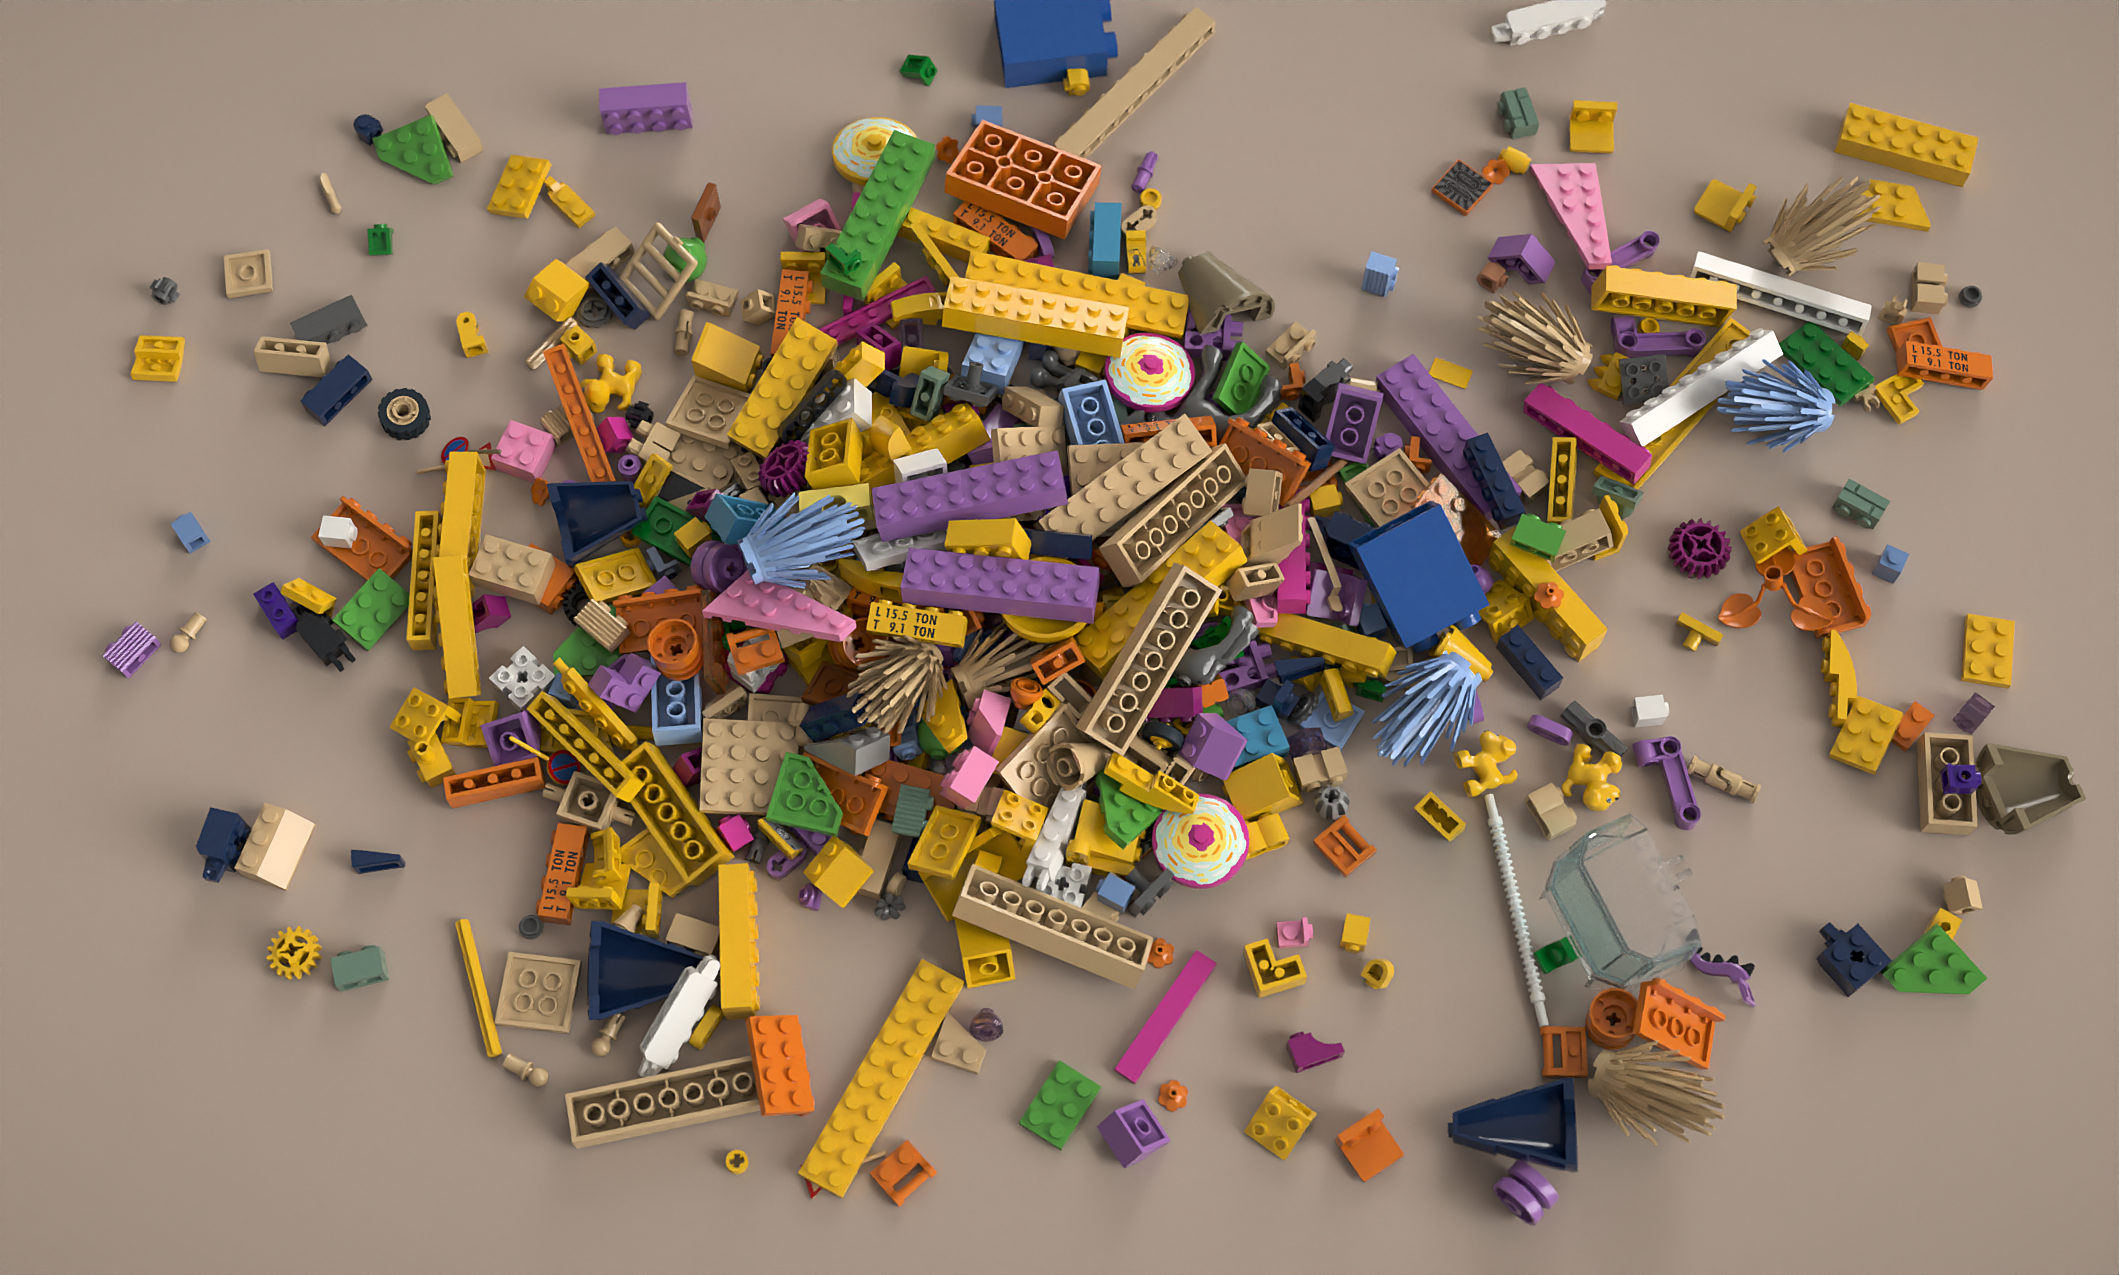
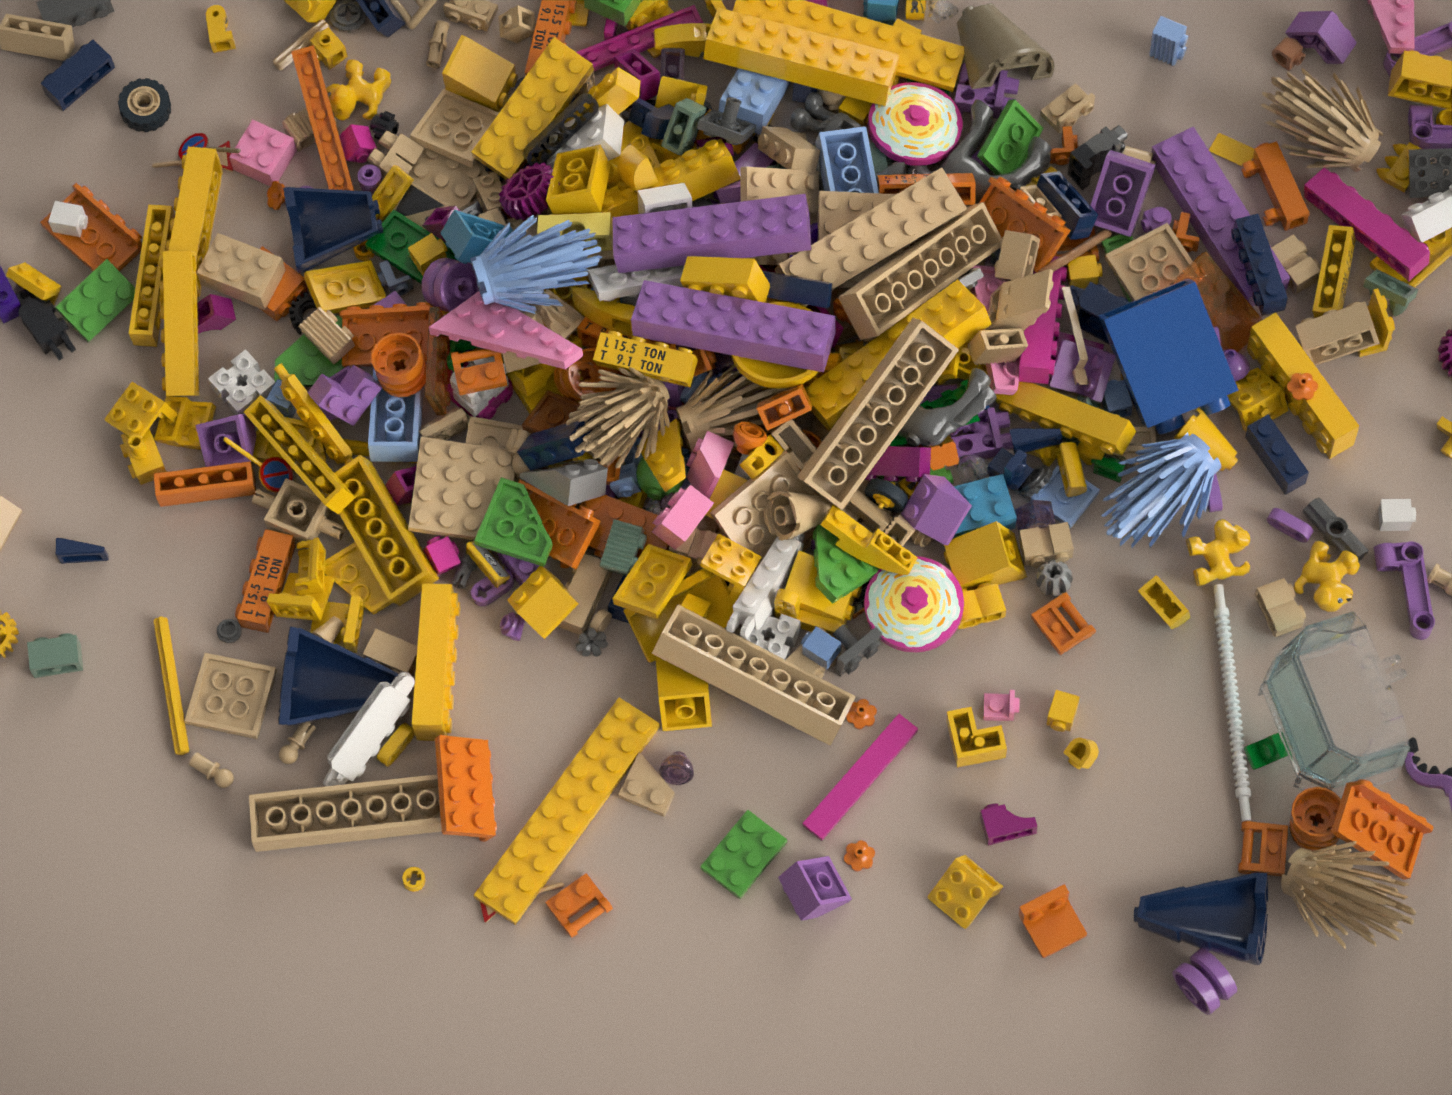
camera: 10 degrees right, 0 degrees up
(1500, 403) = (1280, 186): none -> orange brick
(1538, 537) = (1297, 325): bright green brick -> none

